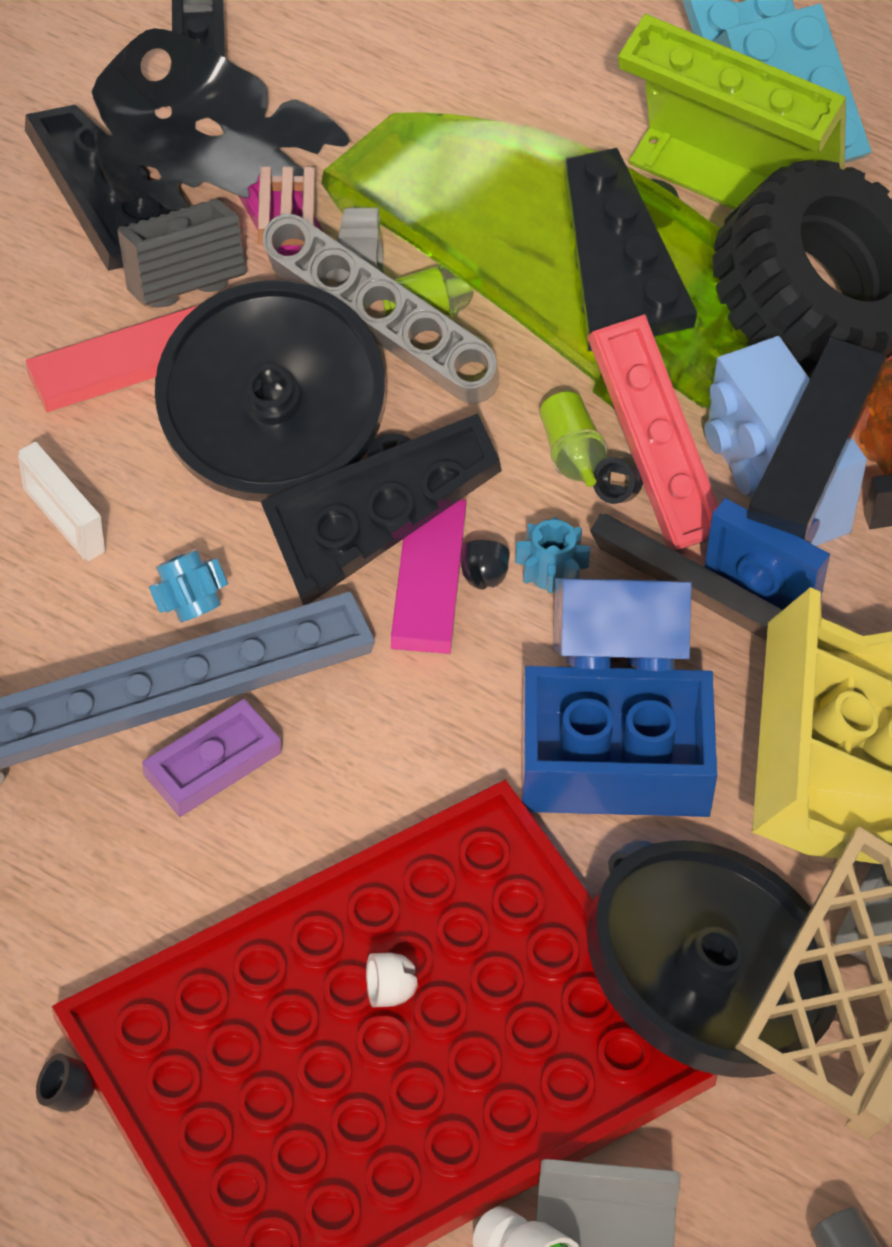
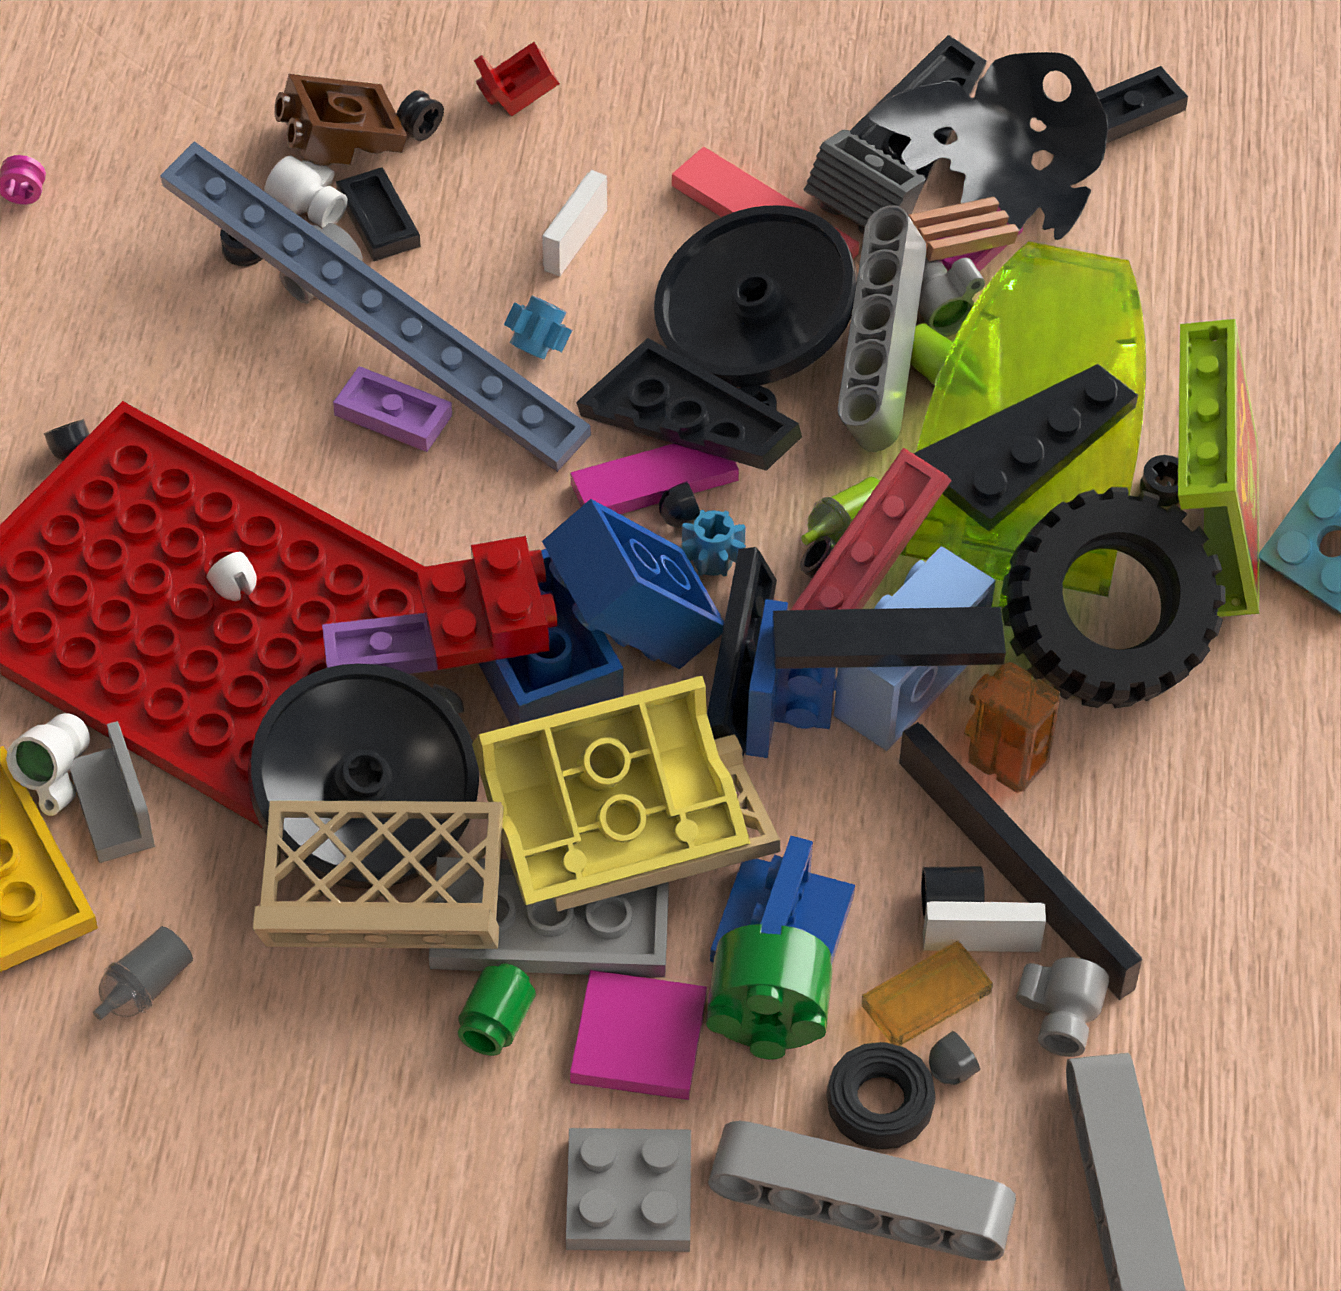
camera: 65 degrees right, 0 degrees up
(560, 876) = (388, 641): none -> medium lavender plate
(587, 746) = (487, 604): none -> red plate

